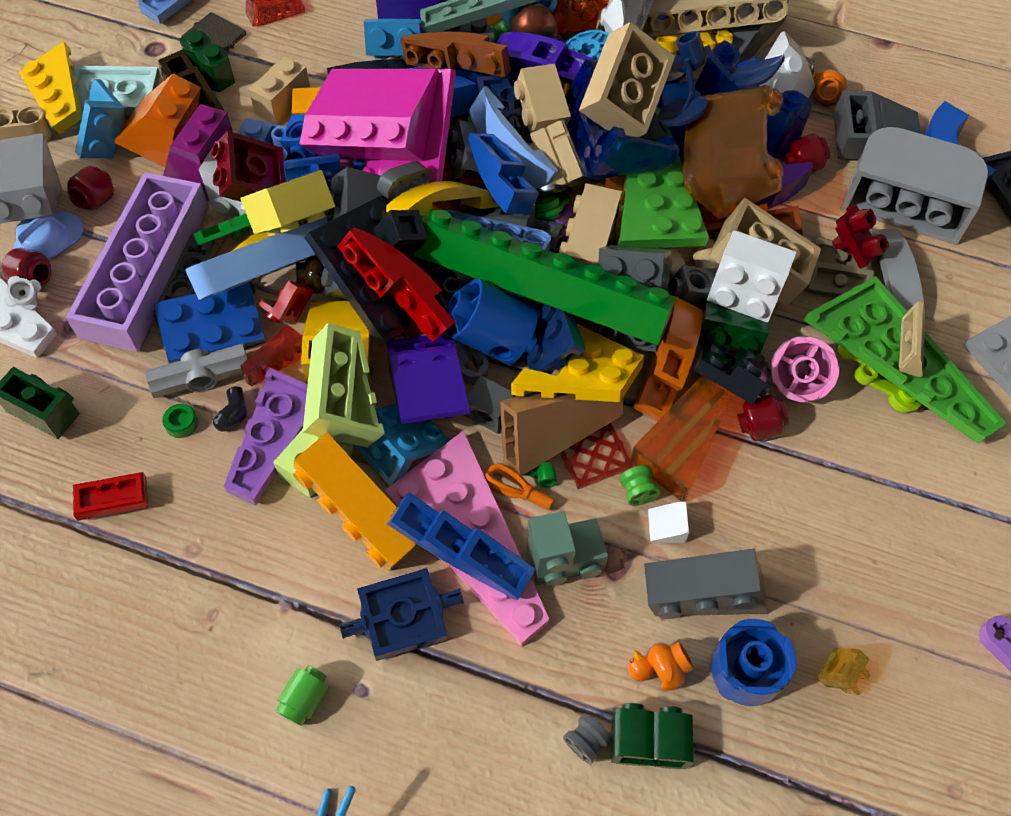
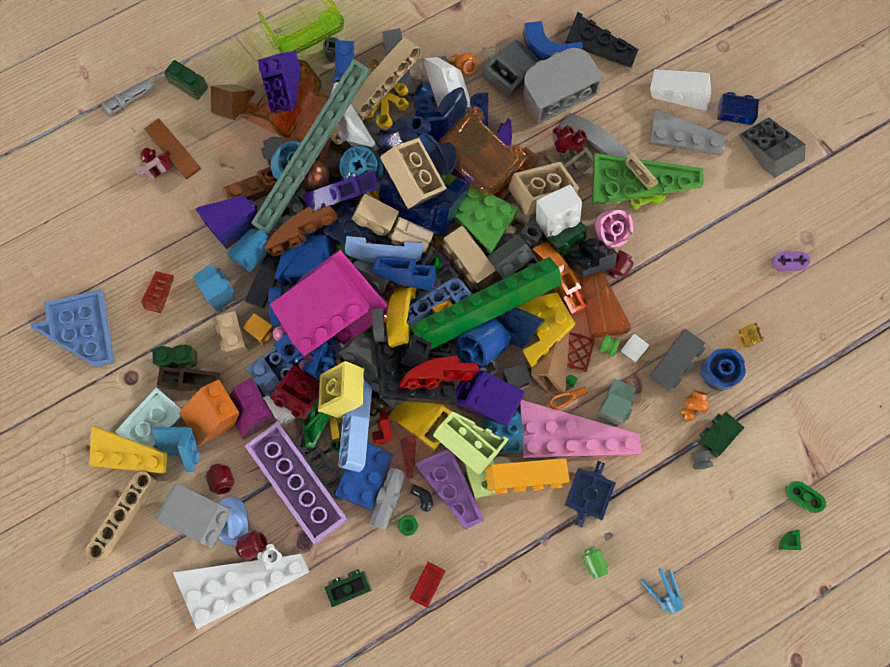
camera: 50 degrees left, 15 degrees up
(219, 31) = (148, 337): clear smoke piece -> none
(318, 40) = (214, 287): none -> dark azure brick
(461, 547) = (583, 446): blue slope -> none
(808, 149) = (498, 112): dark red head -> none

